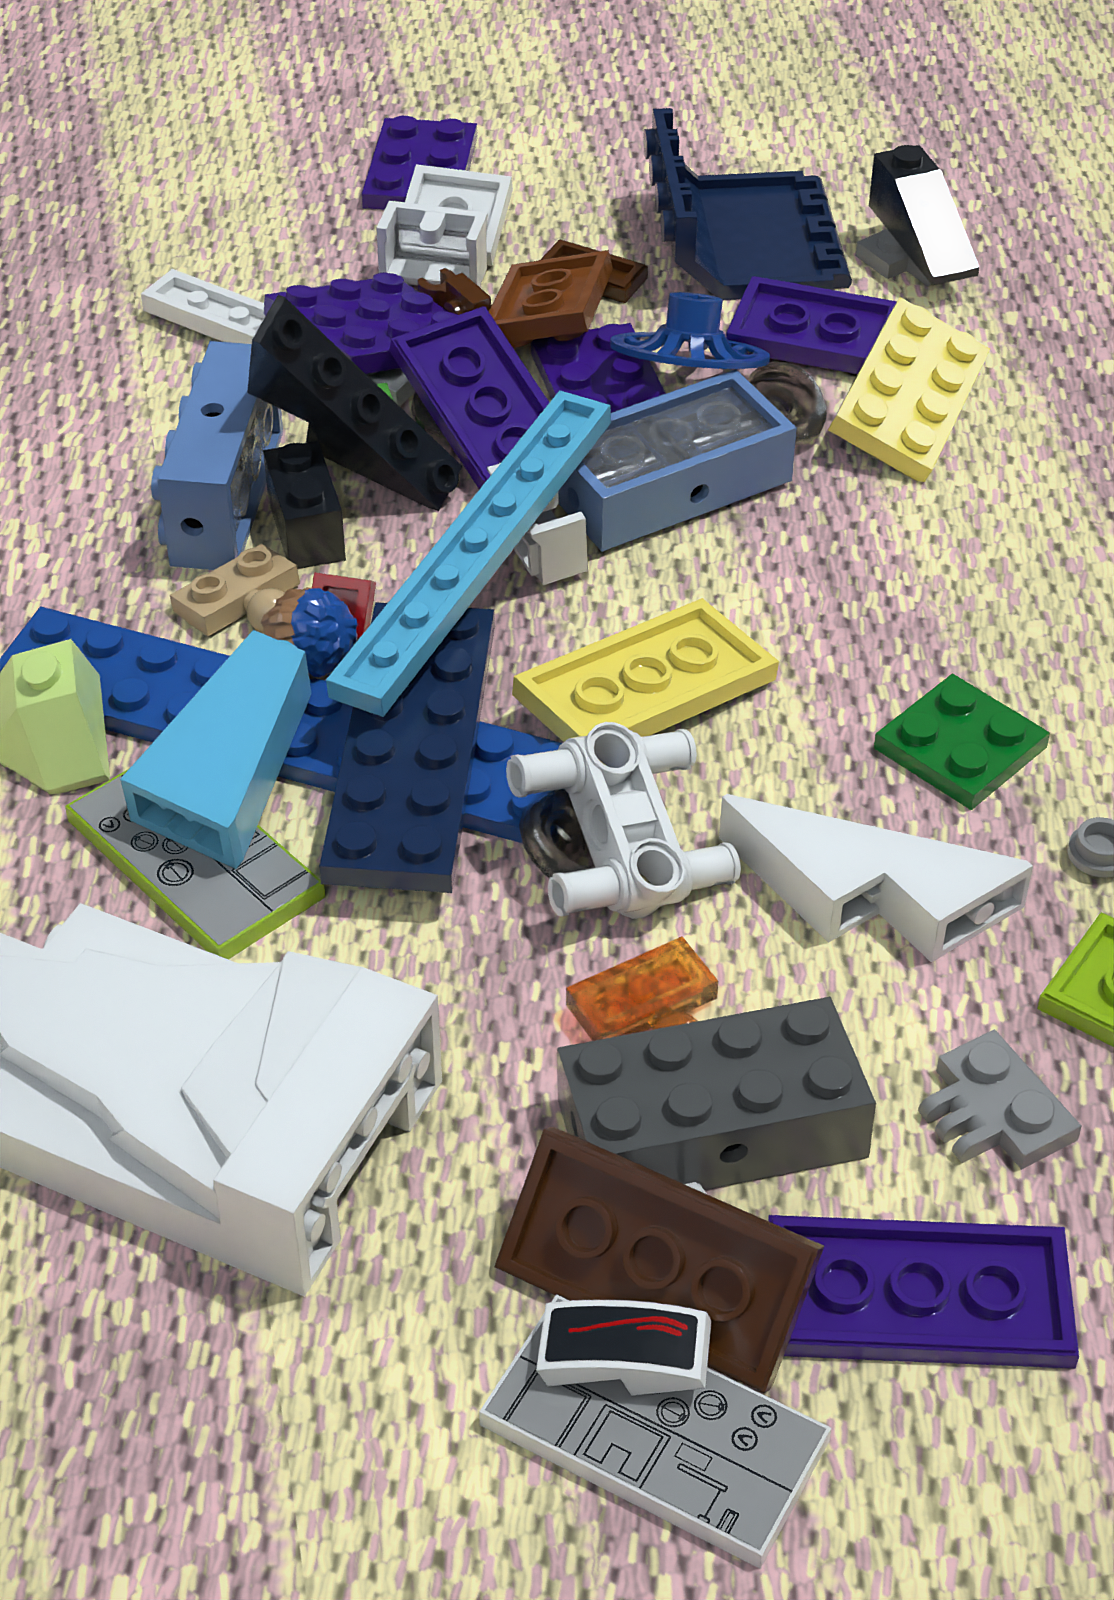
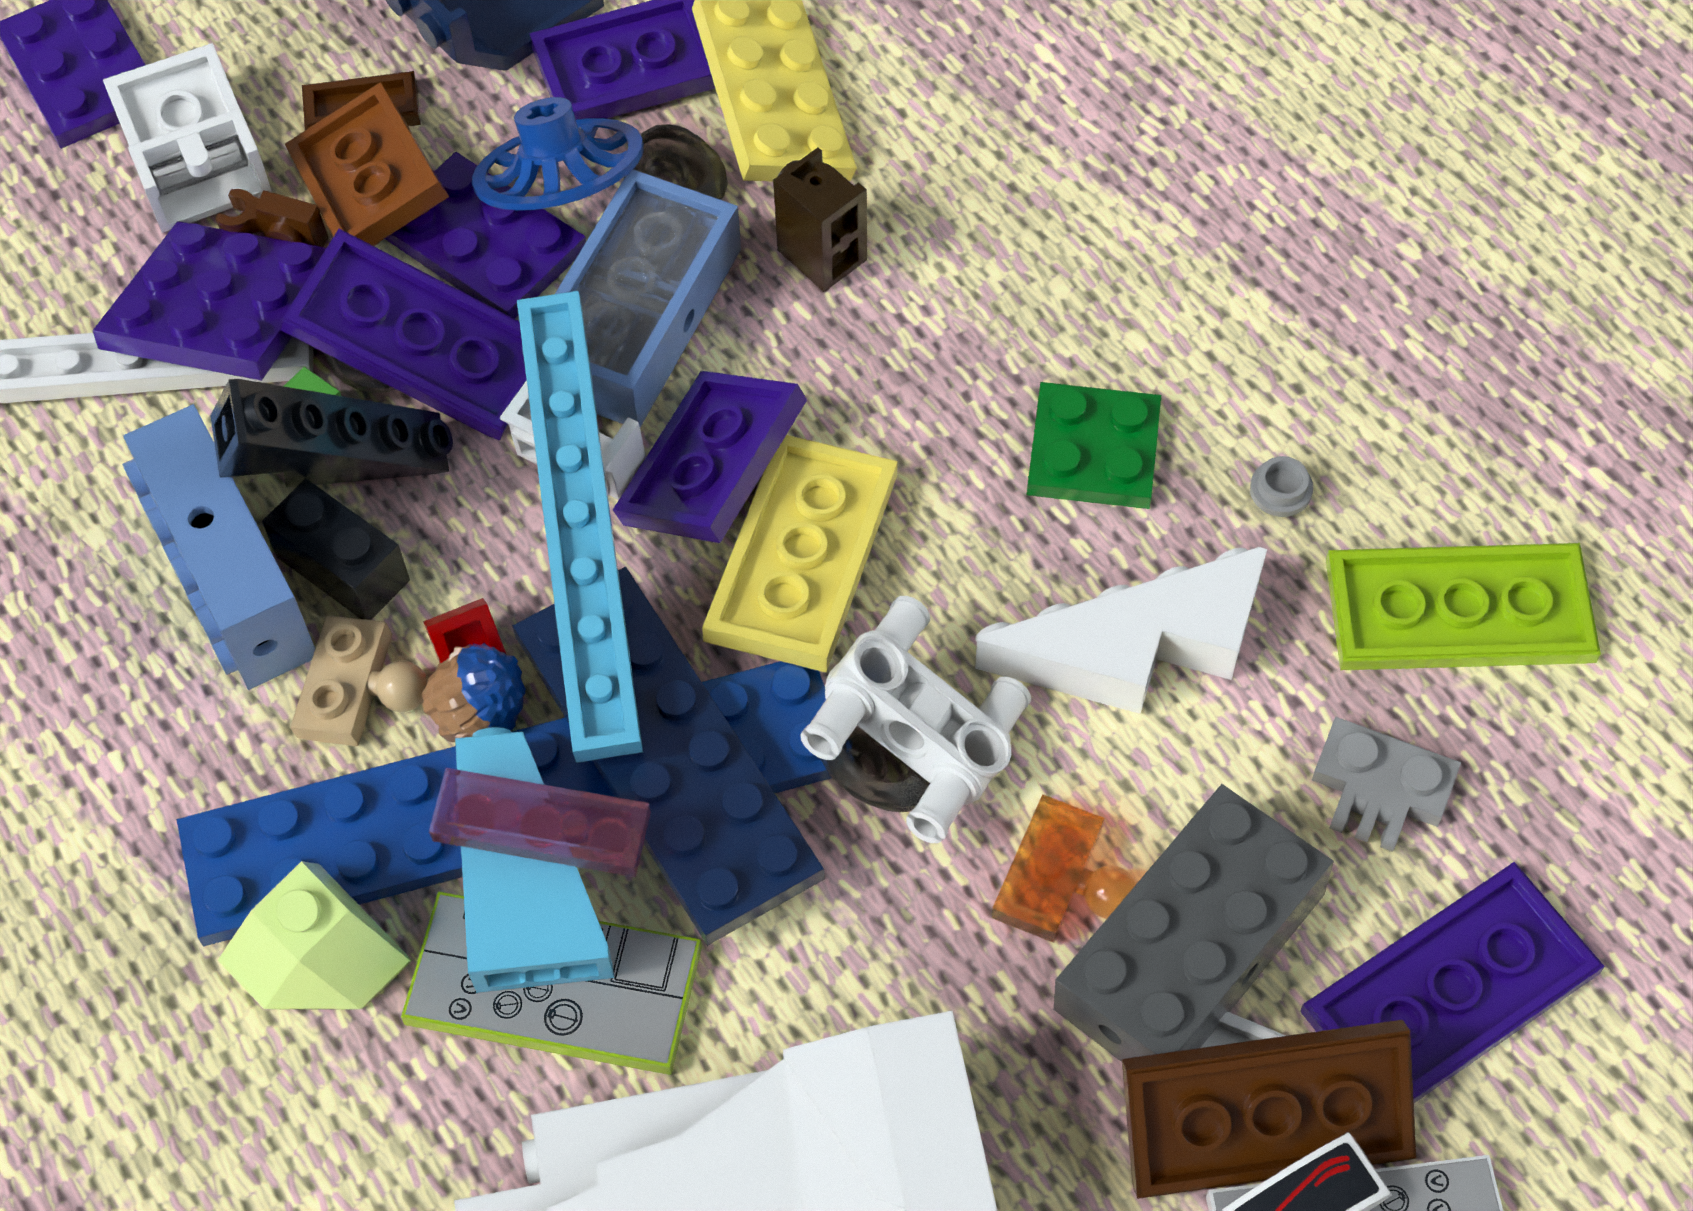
camera: 35 degrees left, 15 degrees up
(256, 705) = (540, 822): none -> clear pink plate
(634, 584) = (710, 456): none -> dark purple plate
(860, 474) = (820, 220): none -> dark brown hinge

